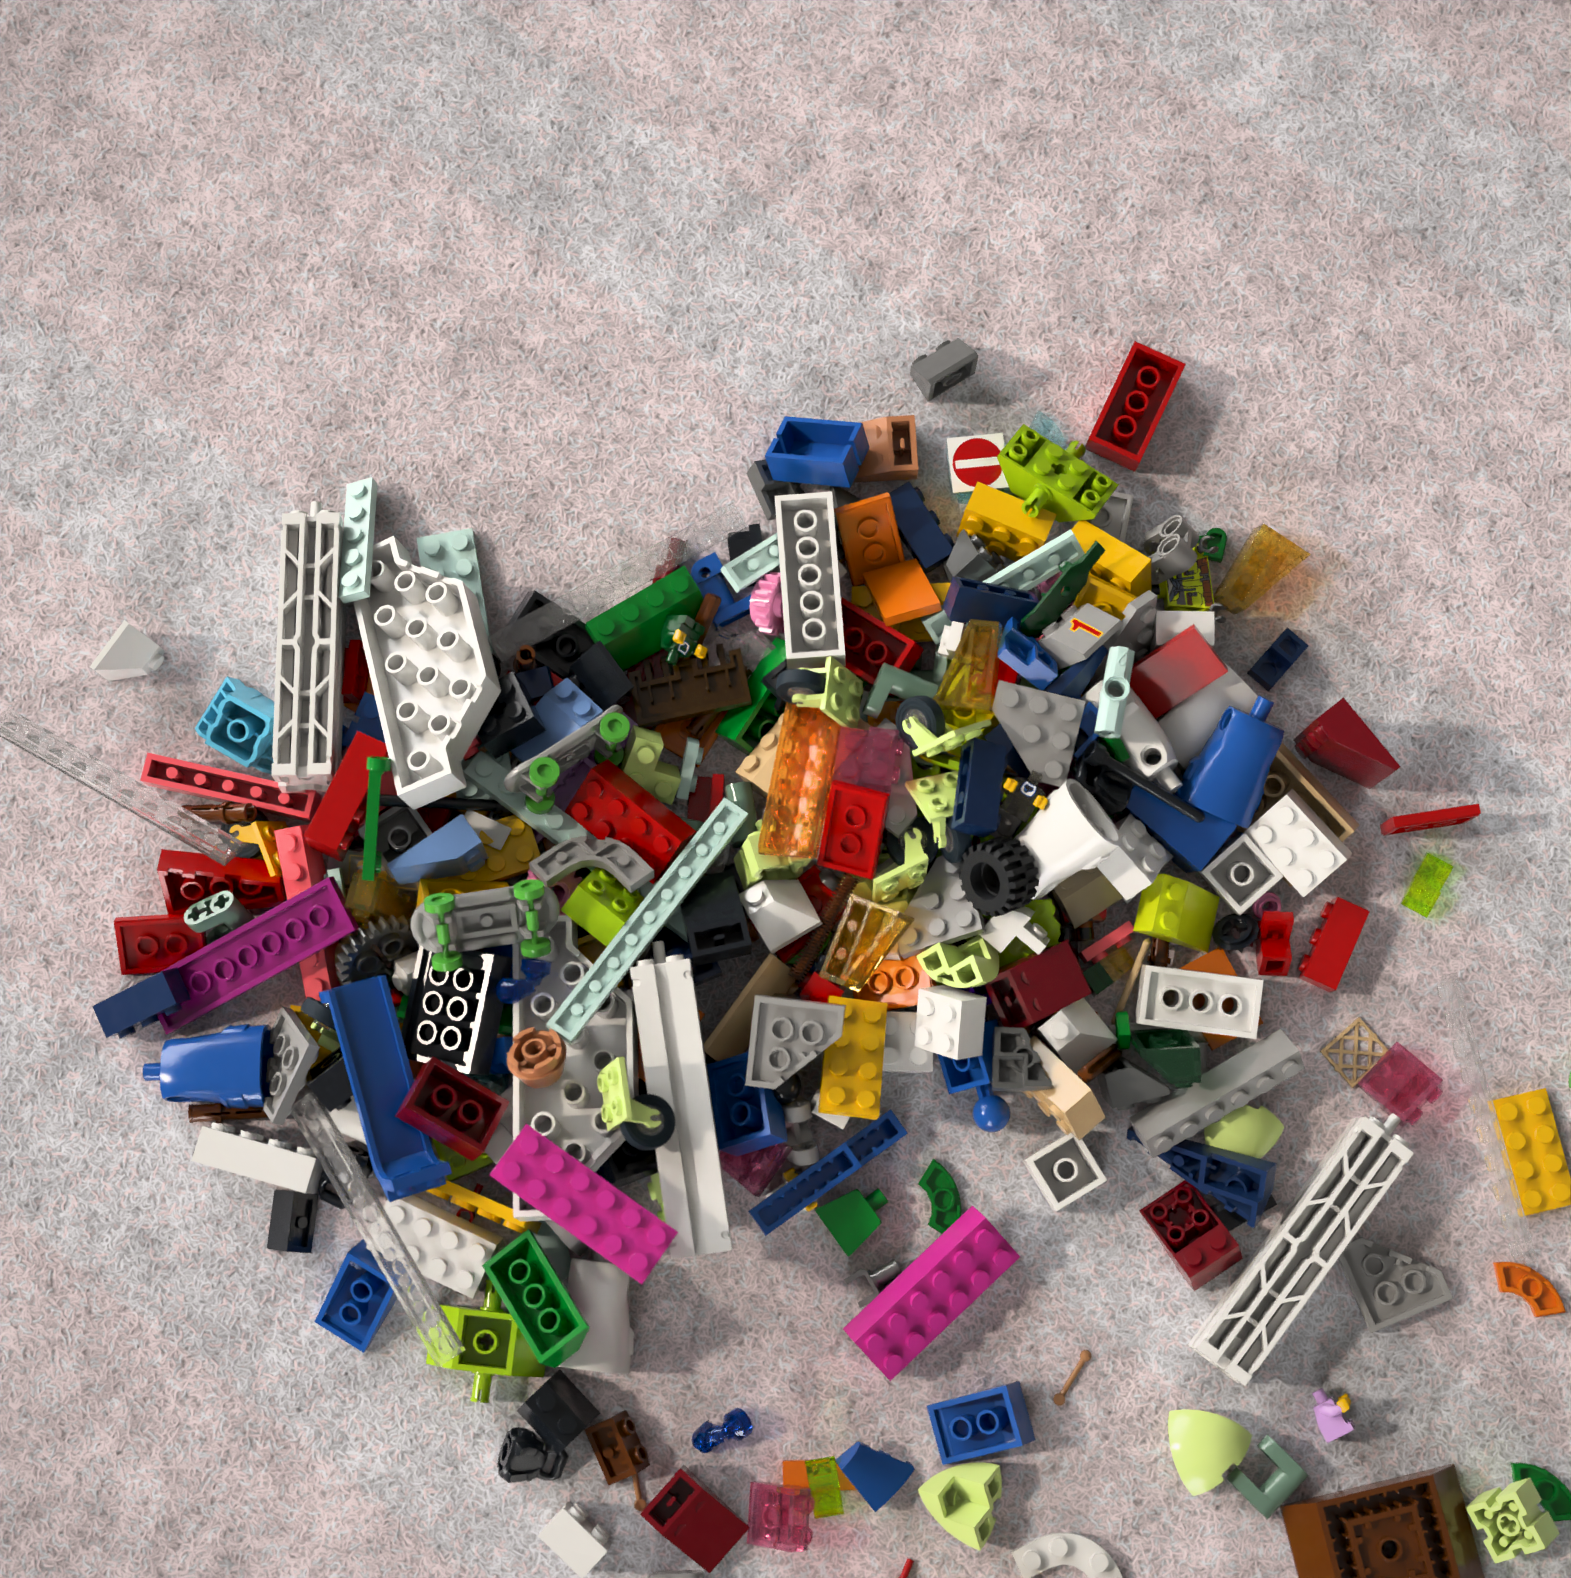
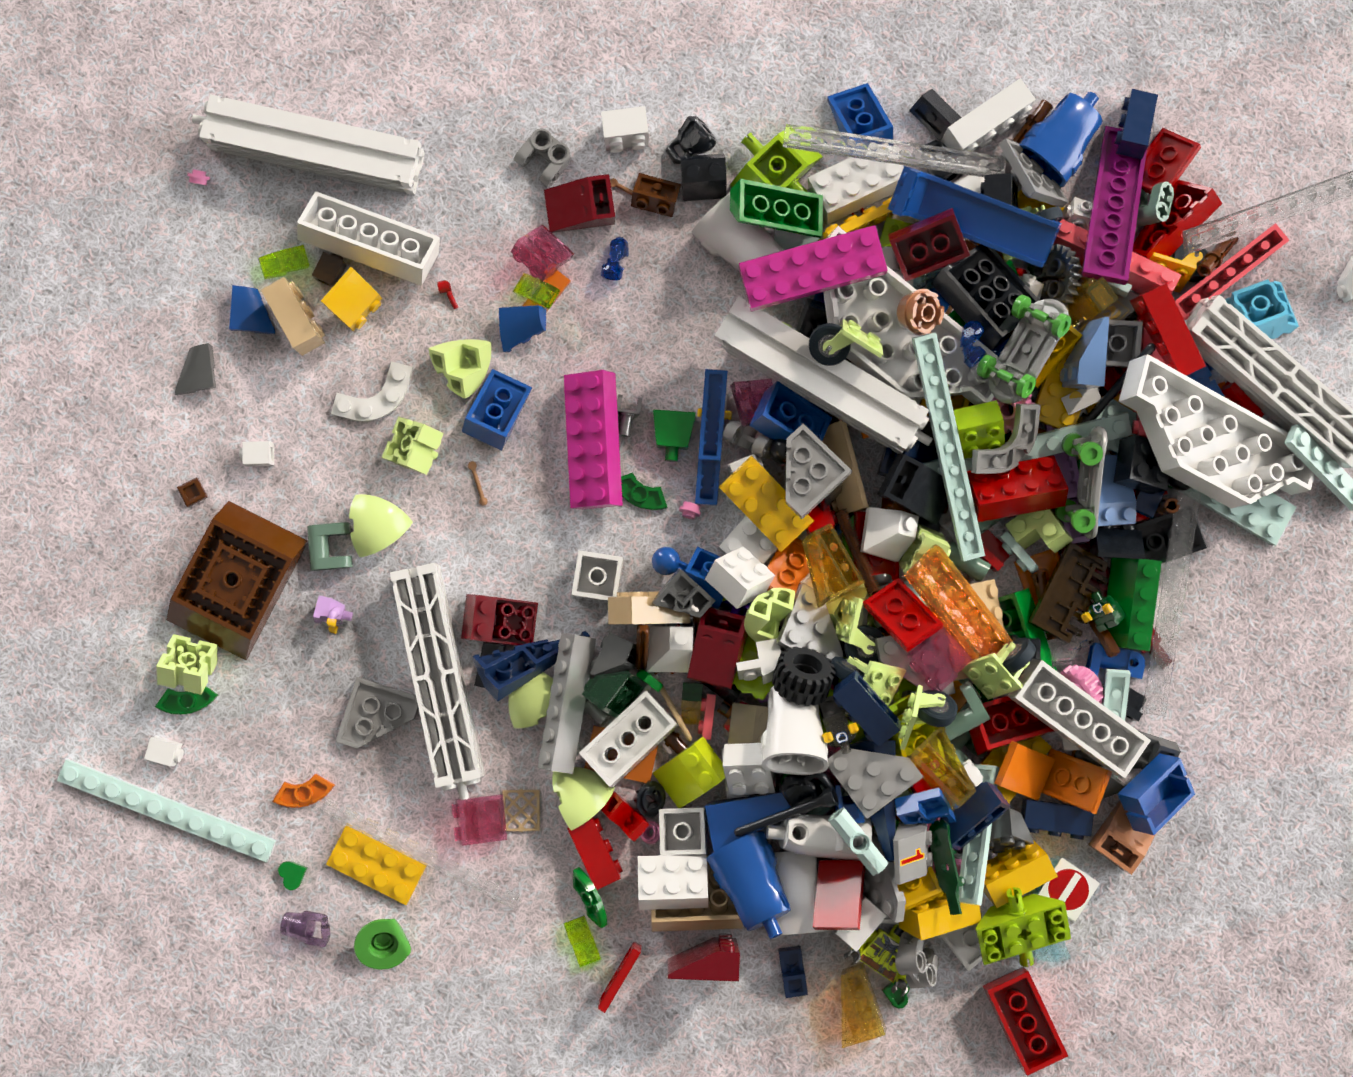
camera: 125 degrees right, 5 degrees up
(286, 987) = (1078, 212): none -> white brick
(371, 857) = (1121, 313): green plate -> none
(917, 1133) = (690, 510): none -> bright pink plate
(943, 368) = (1146, 920): slope -> none
(1094, 1477) = (413, 445): none -> yellowish green brick
(1115, 748) = (822, 814): green tile -> none
(1293, 1003) = (580, 795): none -> yellowish green brick
(1380, 912) = (590, 897): none -> green tile

